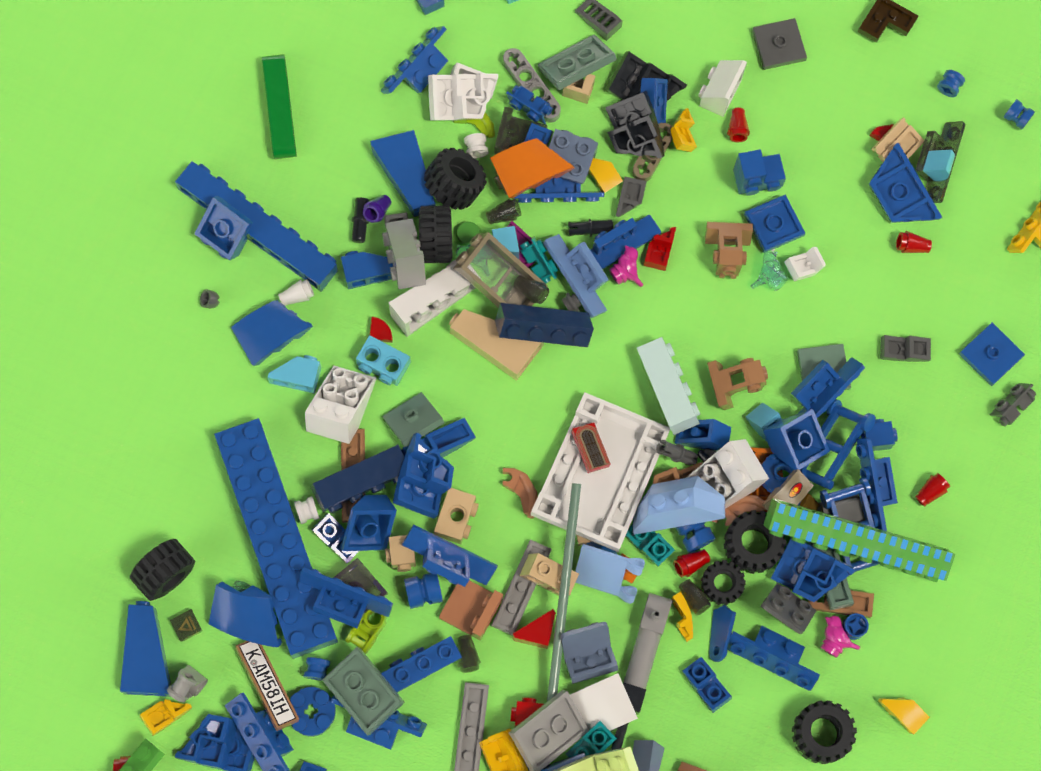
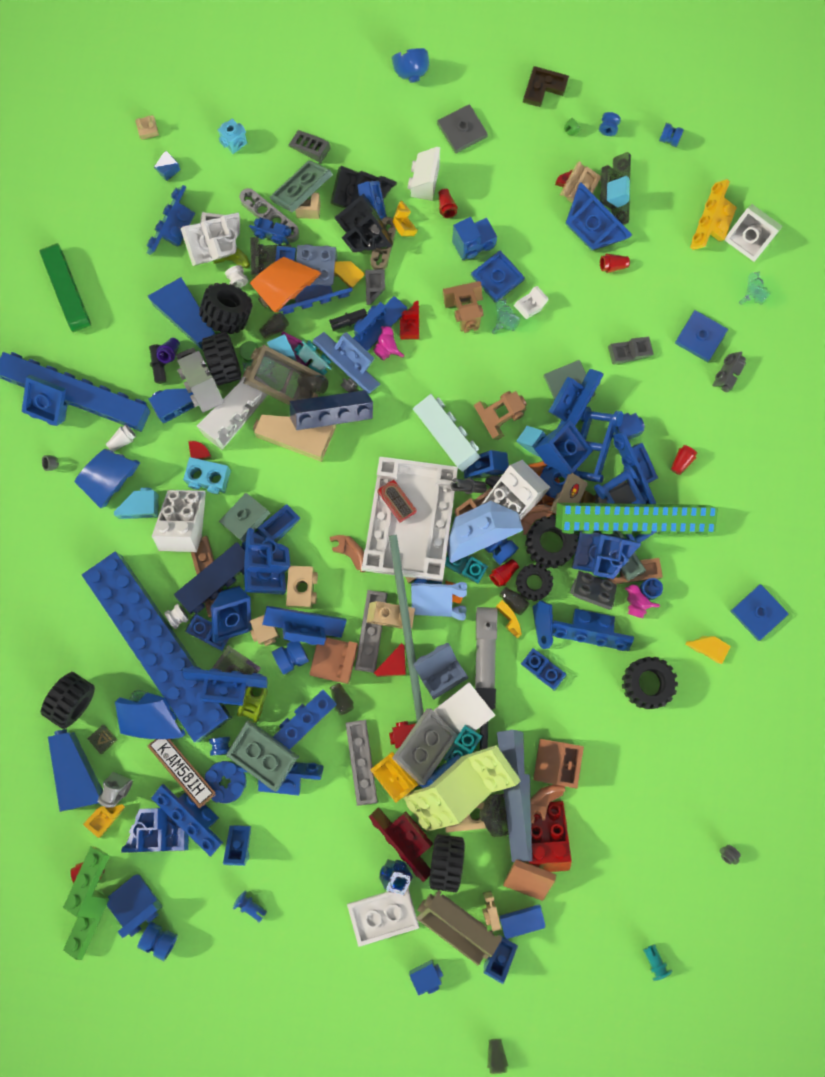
camera: 10 degrees left, 5 degrees up
(907, 74) = (572, 127): none -> bright green hinge
(973, 688) = (759, 612): none -> blue plate

